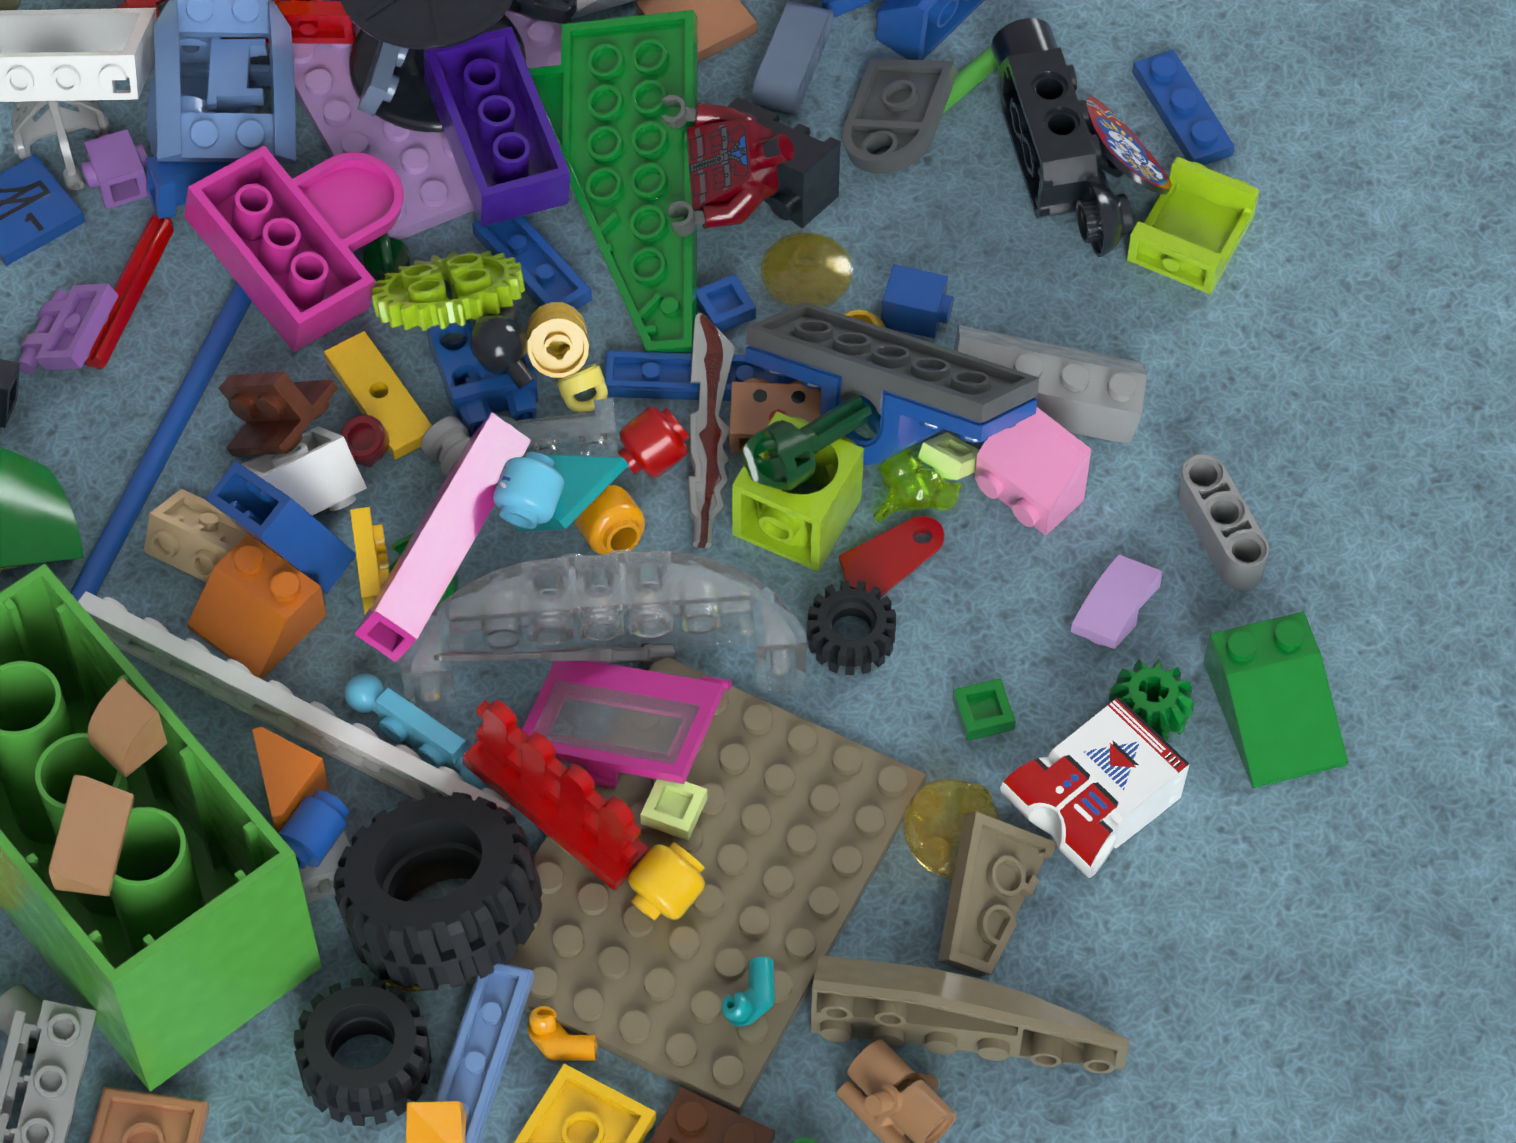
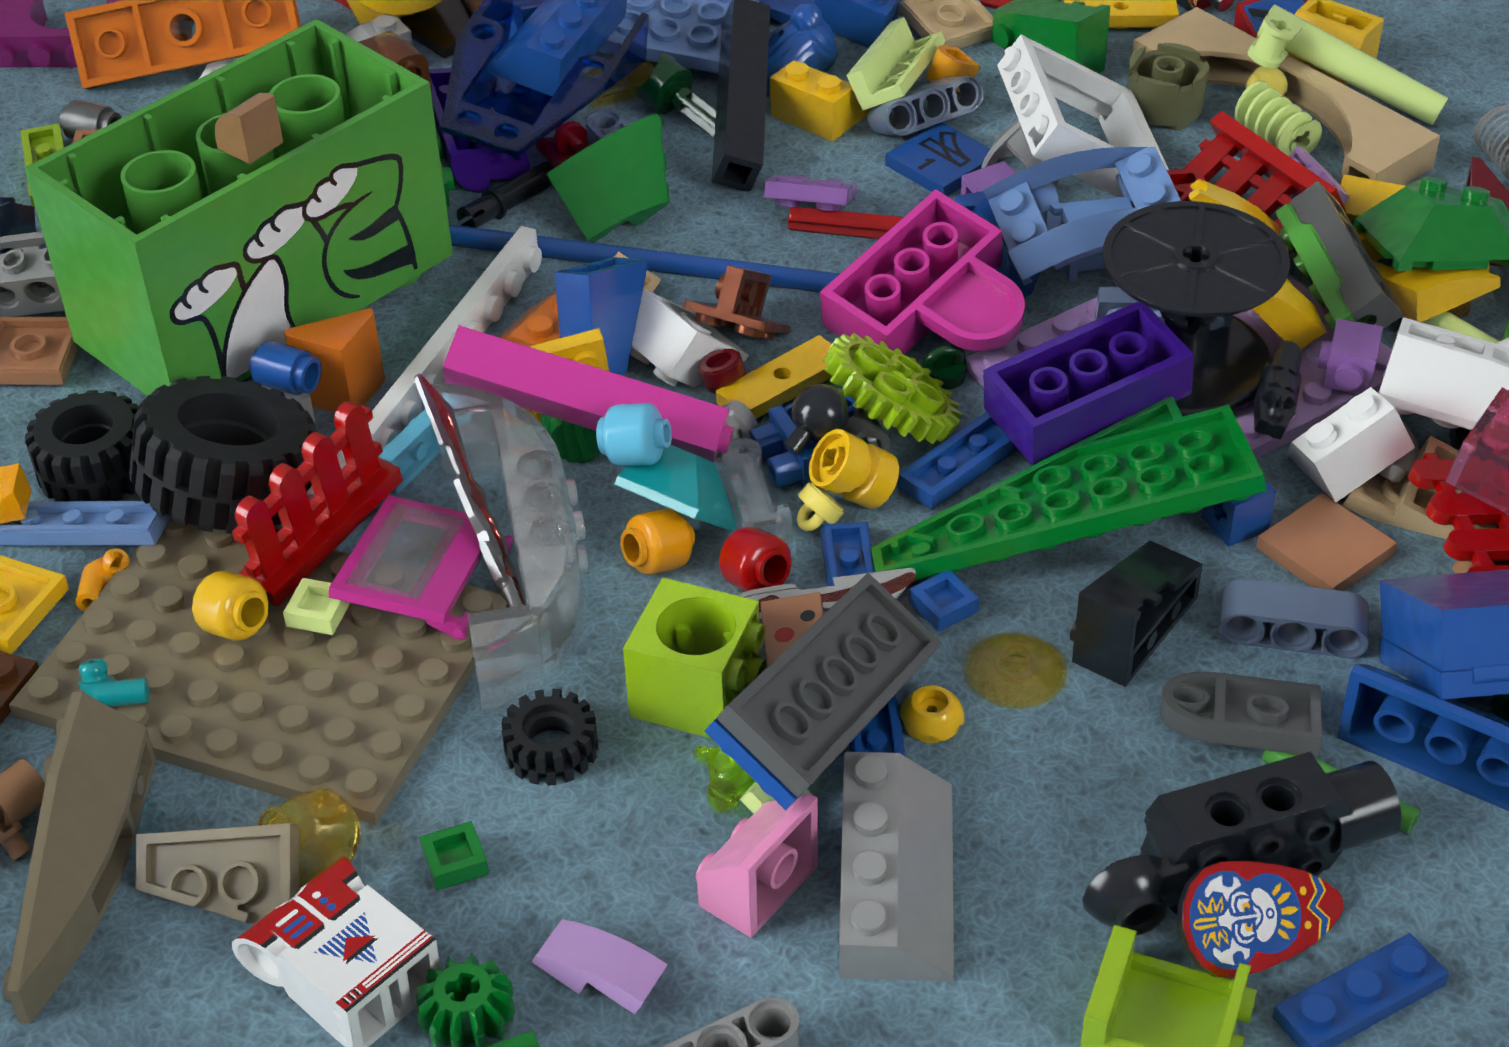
camera: 85 degrees right, 15 degrees down
(90, 837) = (152, 127): medium nougat slope -> none
(729, 165) = (1083, 545): dark red torso -> none
(793, 449) = (688, 597): dark green piece -> none
(892, 554) = (649, 768): red piece -> none
(916, 301) = (980, 748): blue brick -> none

